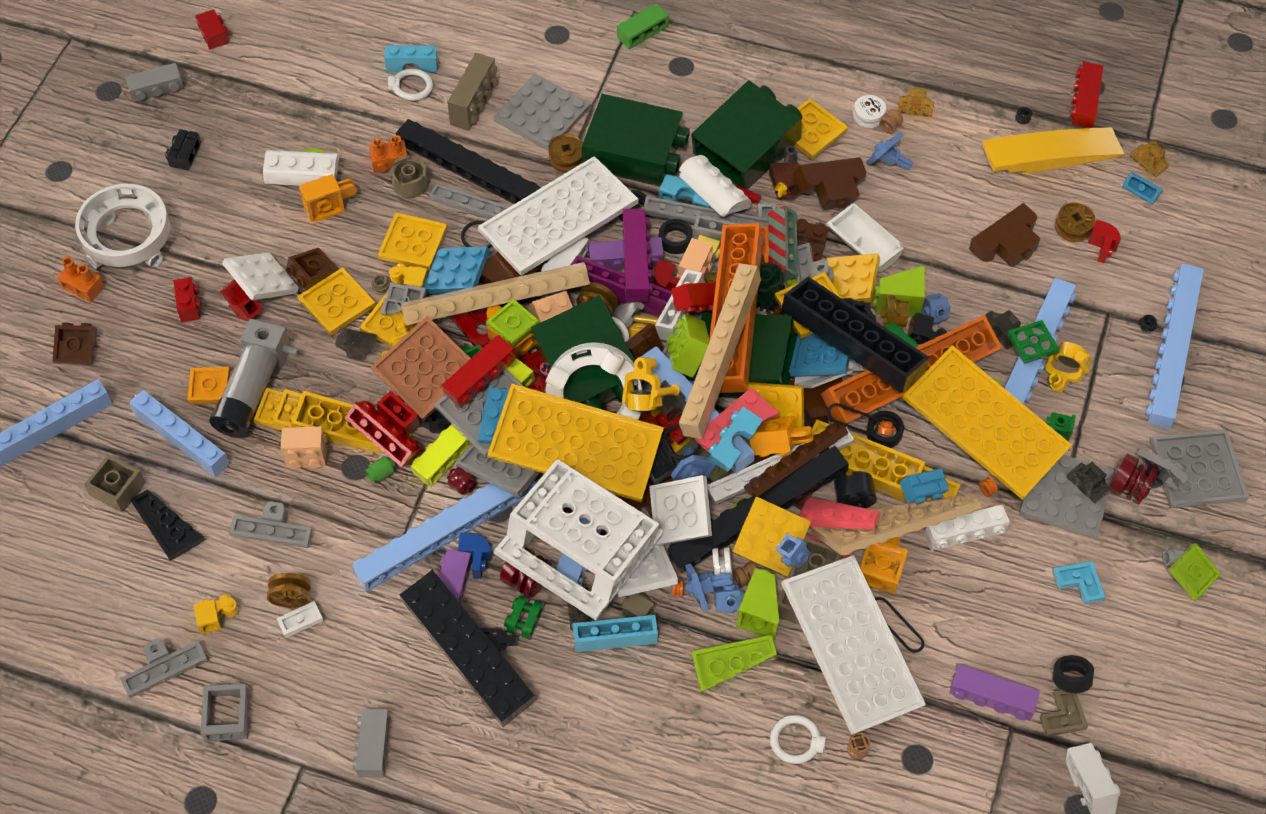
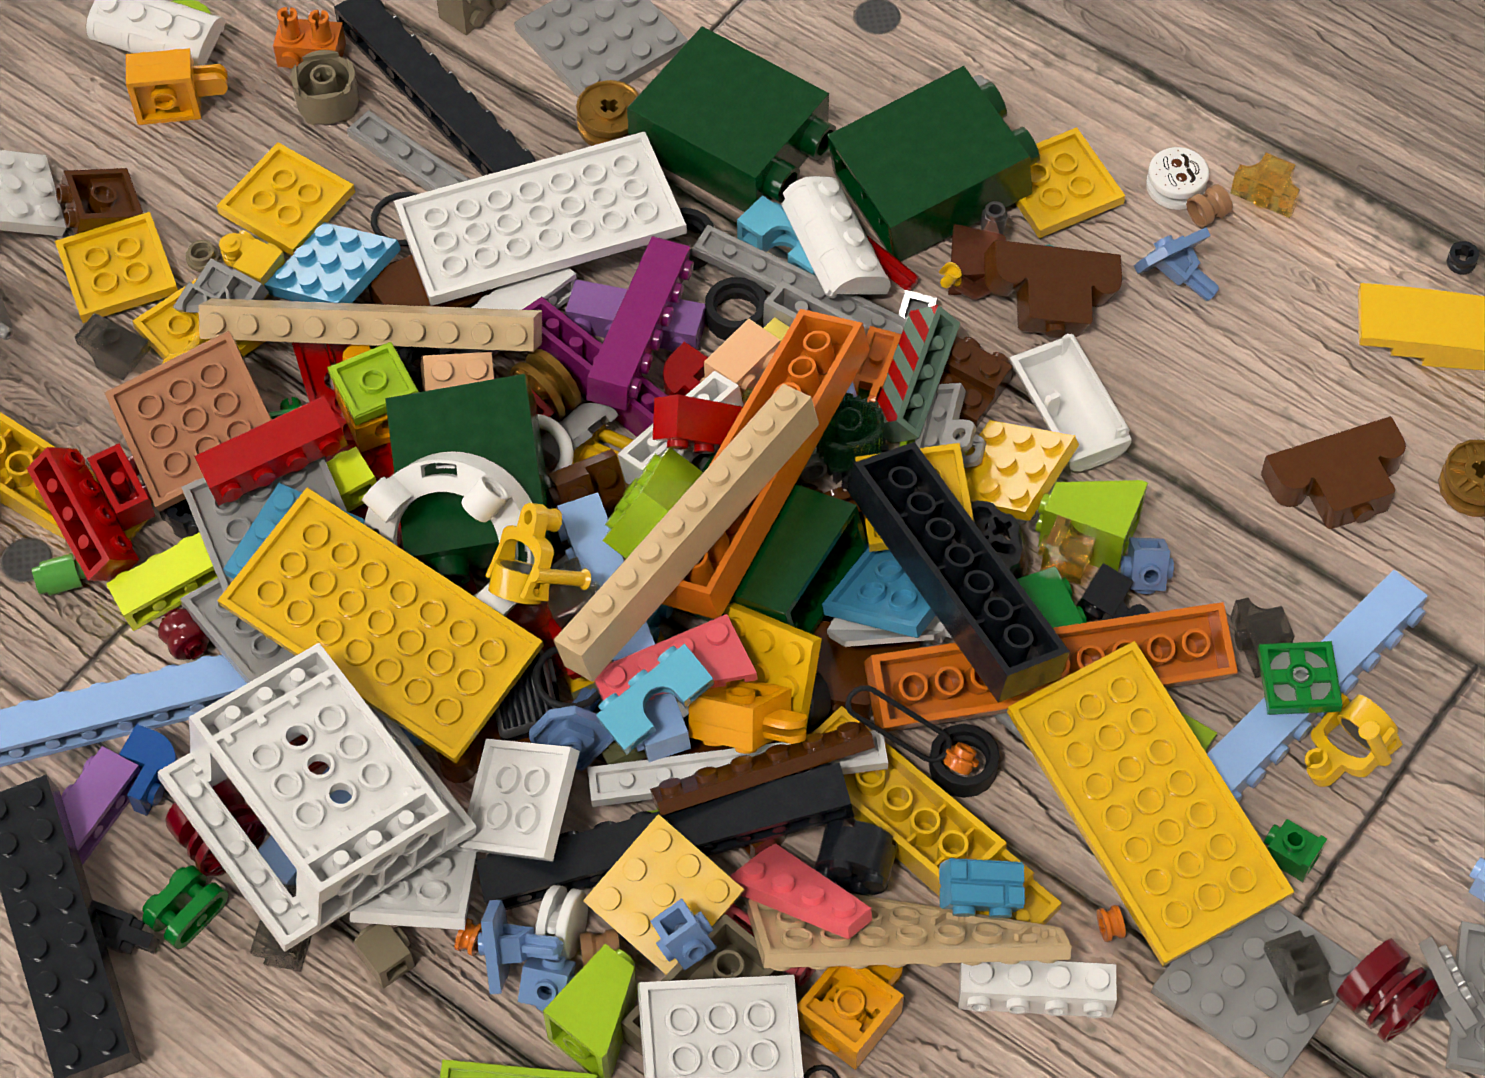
camera: 20 degrees right, 0 degrees up
(615, 633) = (322, 984): medium azure brick -> none

